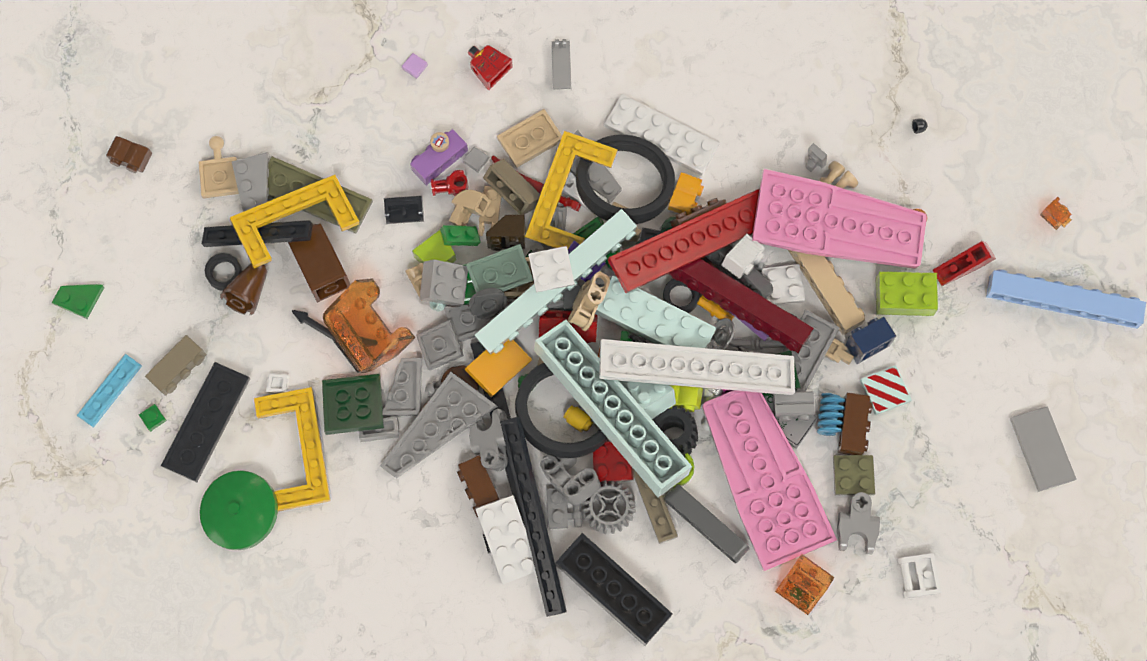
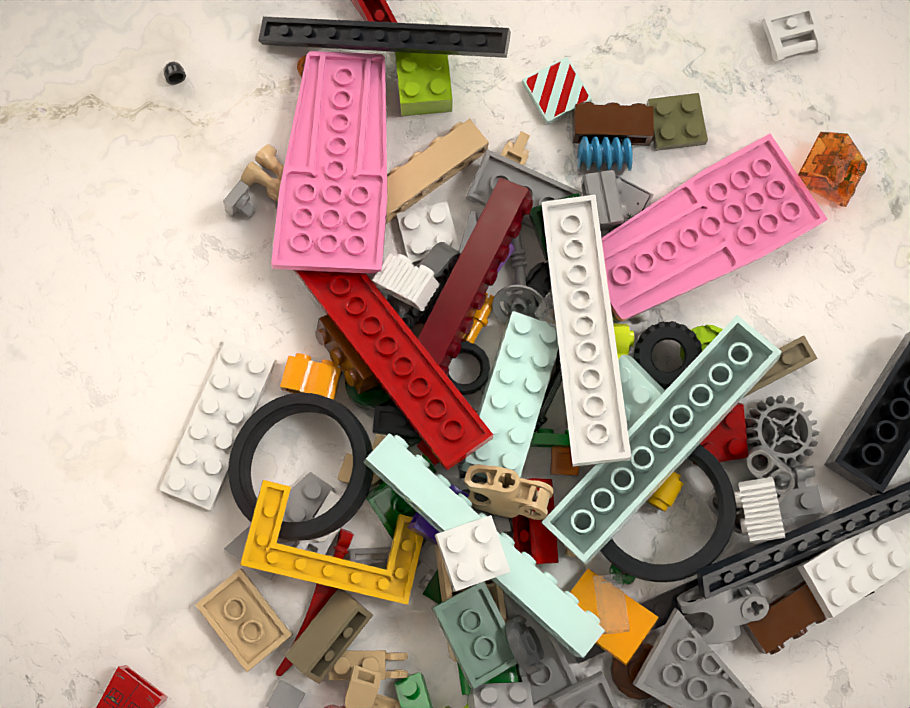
camera: 100 degrees left, 5 degrees up
(506, 366) = (611, 603): none -> clear tile
(507, 233) = (403, 630): dark brown slope -> none
(554, 469) = (760, 509): none -> white brick
(561, 64) = (117, 588): light grey hinge -> none
(706, 523) = (785, 290): dark grey beam -> none
(858, 522) = (741, 110): light grey piece -> none
(870, 339) = (498, 109): dark blue brick -> none
(930, 264) = (386, 36): none -> black plate

